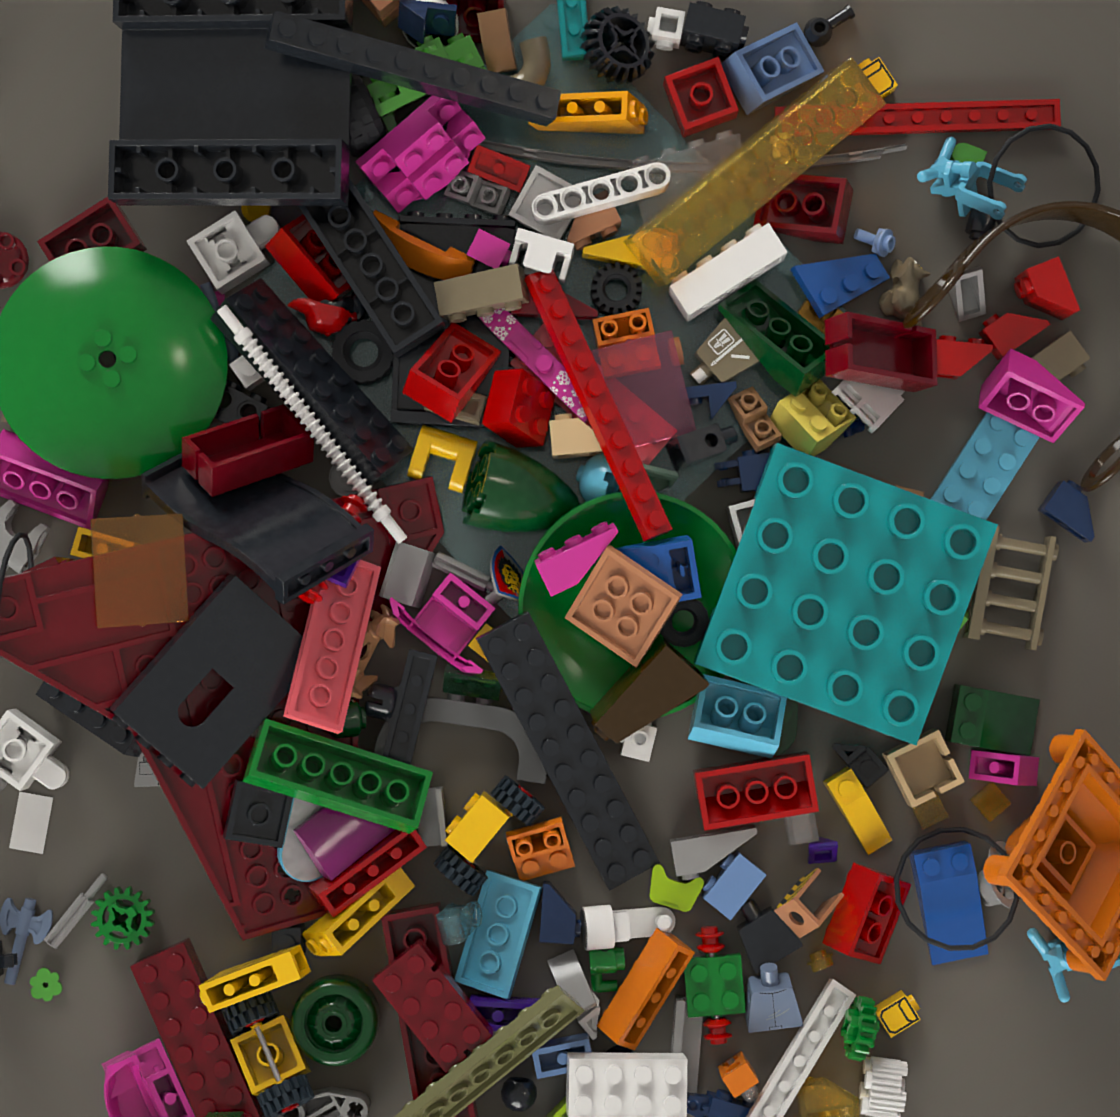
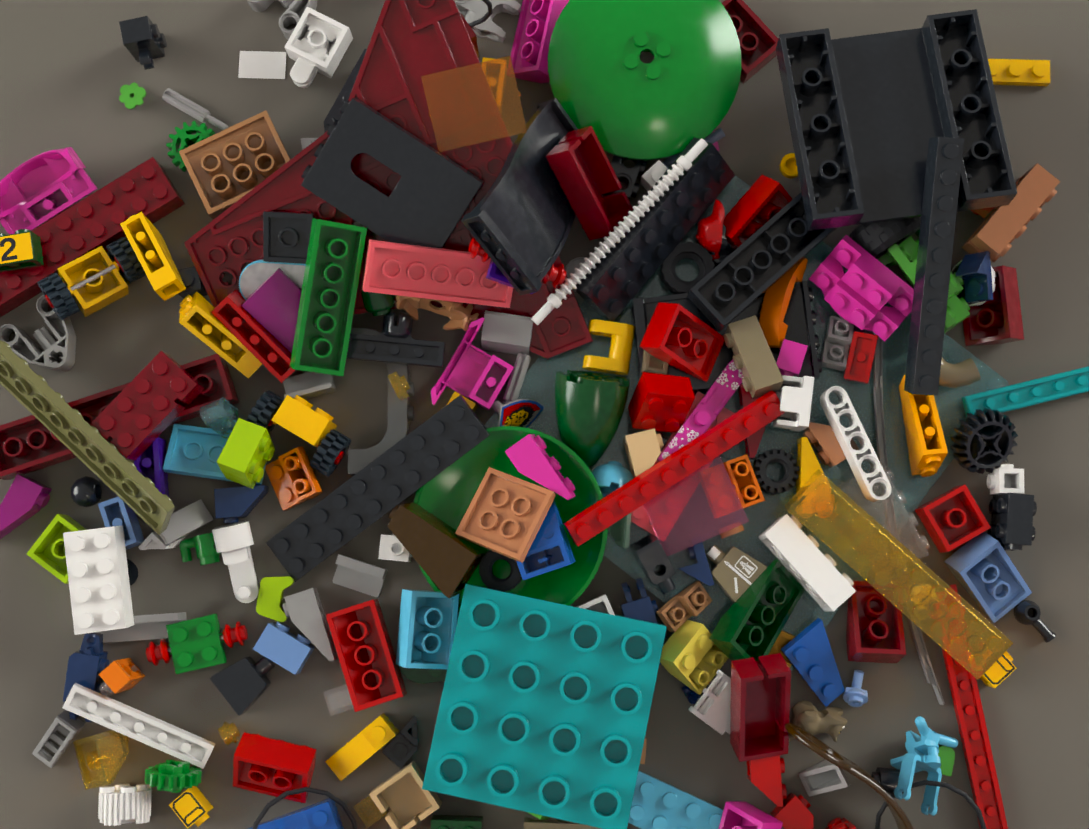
camera: 80 degrees right, 5 degrees down
(25, 923) = (179, 72): sand blue piece -> none
(154, 867) = (234, 161): none -> medium nougat slope
(233, 250) = (754, 149): white brick -> none
(349, 1001) = (147, 334): dark green wheel -> none
(452, 708) = (399, 385): none -> clear yellow plate
(470, 684) = (422, 399): clear green plate -> none
(497, 41) = (969, 338): medium nougat slope -> none
(506, 897) = (246, 453): none -> lime brick
(538, 183) = (855, 391): white plate -> none
(645, 989) = (185, 585): orange brick -> none
(663, 787) = (359, 575): none -> light grey panel
(771, 1001) = (188, 695): sand blue torso -> none
(792, 904) = (272, 699): nougat piece -> none
(822, 851) = (323, 721): dark purple slope -> none

